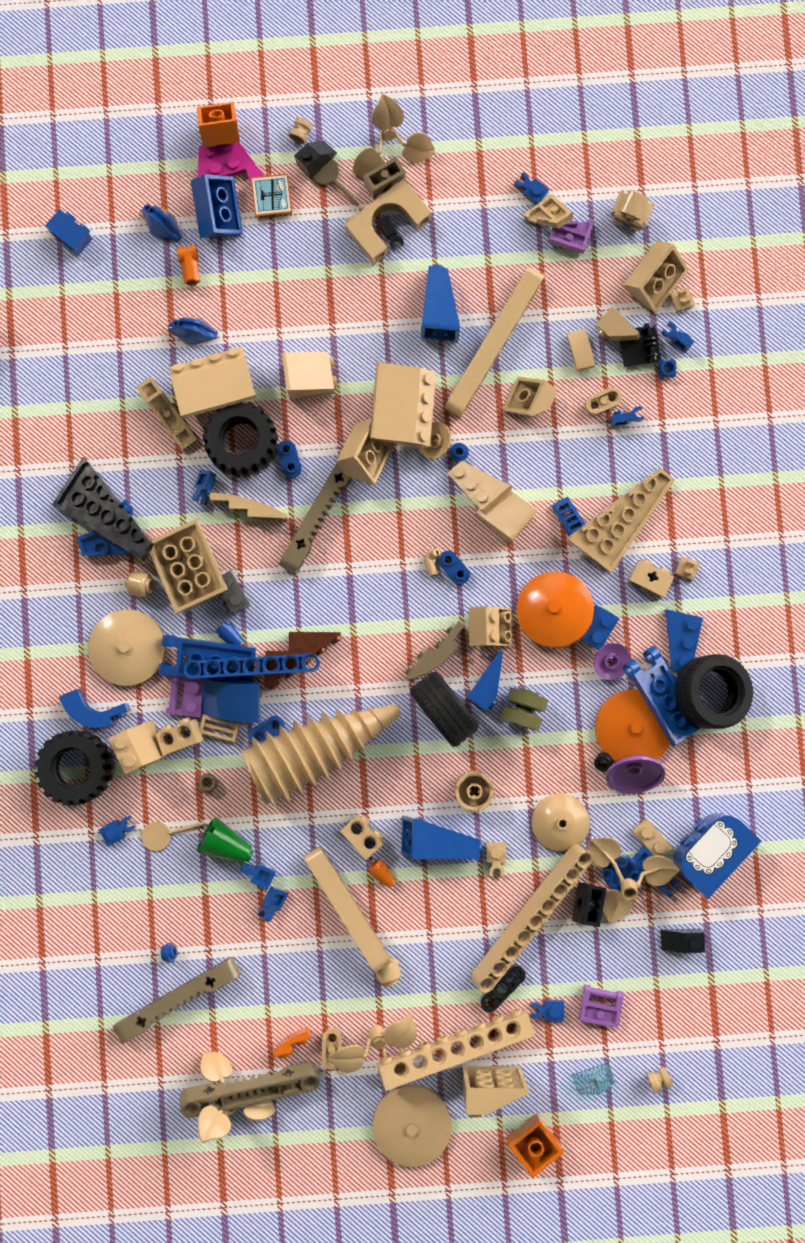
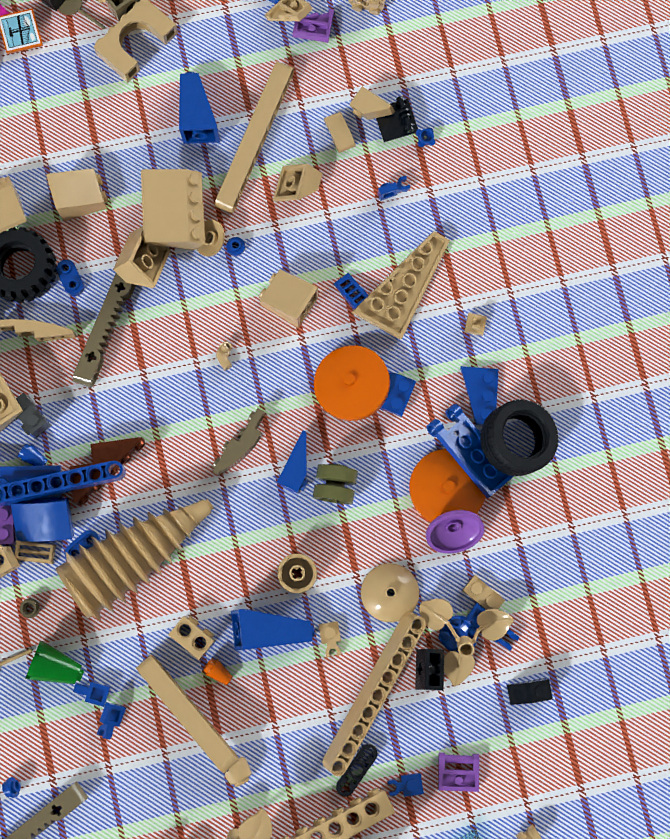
camera: 10 degrees left, 5 degrees down
(390, 232) = (139, 49): black bar -> none
(444, 709) = (254, 494): black tyre -> none
(452, 568) = (246, 358): blue plate -> none
(478, 486) = (258, 274): tan wing -> none
(490, 626) = (290, 409): tan slope -> none
(602, 401) = (367, 176): tan plate -> none
(603, 756) = (421, 519): black bush -> none
(613, 669) = (415, 434): medium lavender dish -> none
(640, 579) = (450, 342): tan brick -> none
(656, 275) = (401, 52): tan slope -> none
(680, 339) = (433, 108): blue plate -> none
(682, 300) = (430, 71): tan tile -> none
(713, 851) = (545, 596): blue brick -> none

